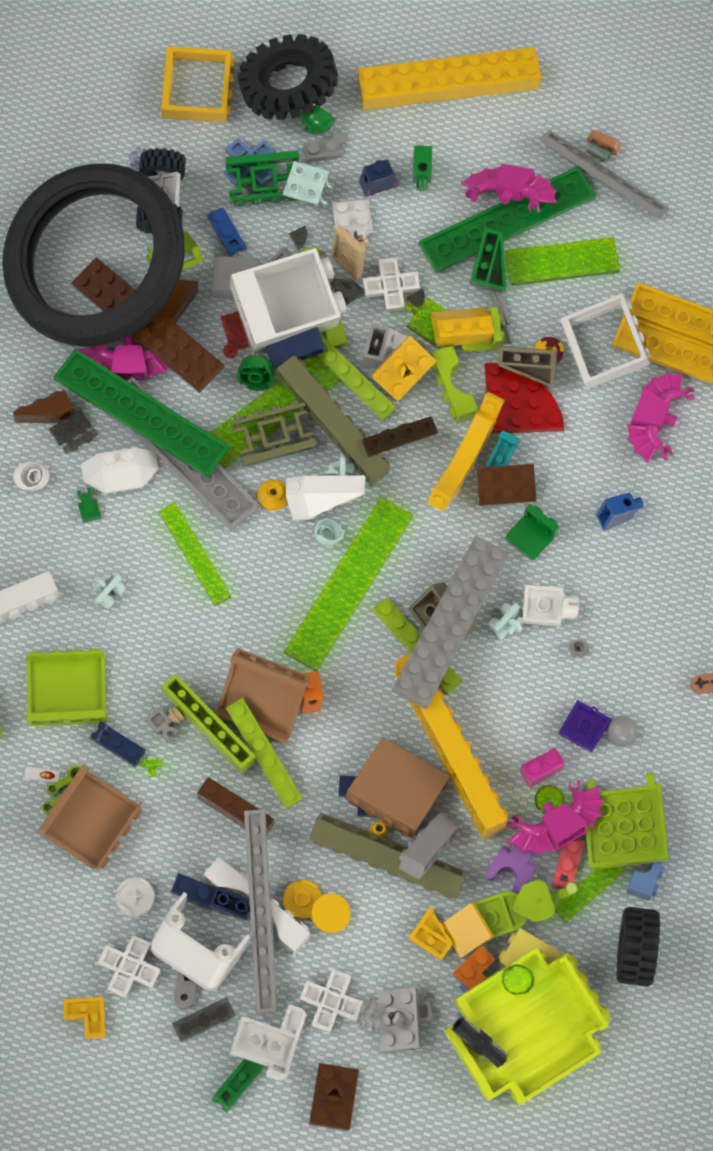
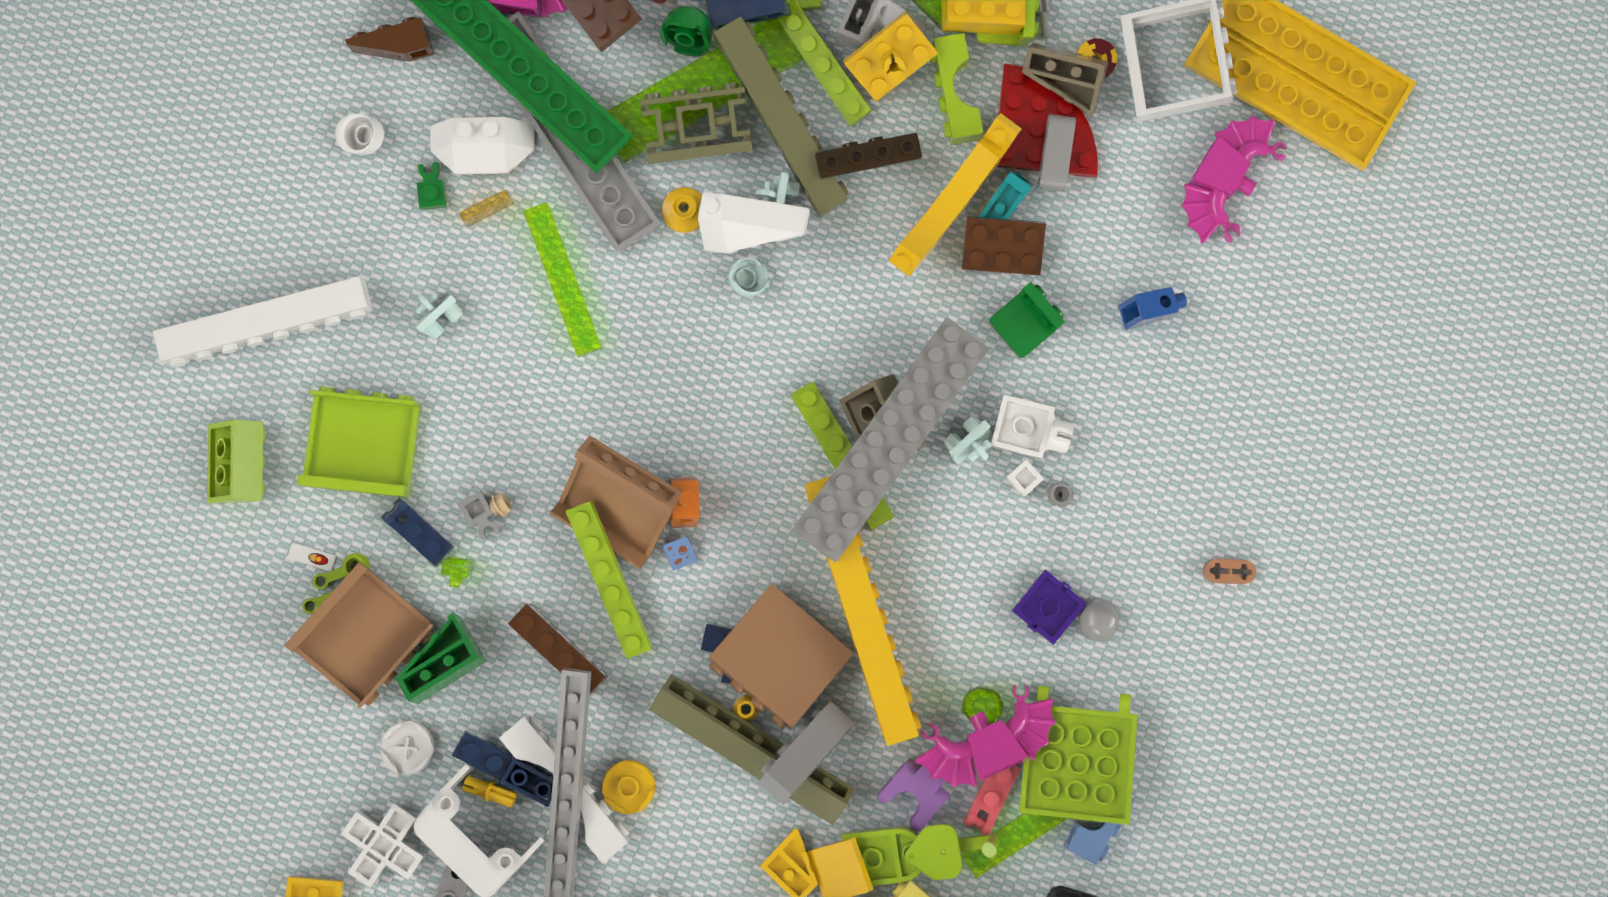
camera: 10 degrees right, 15 degrees up
(71, 427) = (423, 72): clear smoke plate -> none
(131, 513) = (486, 208): none -> clear yellow tile
(152, 829) = (441, 662): none -> green wedge
(202, 917) = (489, 791): none -> yellow axle
(208, 724) = (540, 526): lime brick -> none
(311, 729) = (680, 553): none -> medium blue slope
(330, 913) = (661, 814): yellow tile -> none
(348, 584) = (764, 354): clear neon green plate -> none
(532, 415) = (1056, 152): none -> light grey beam
(542, 767) = (981, 657): dark pink brick -> none
(551, 640) = (1024, 478): none -> white plate

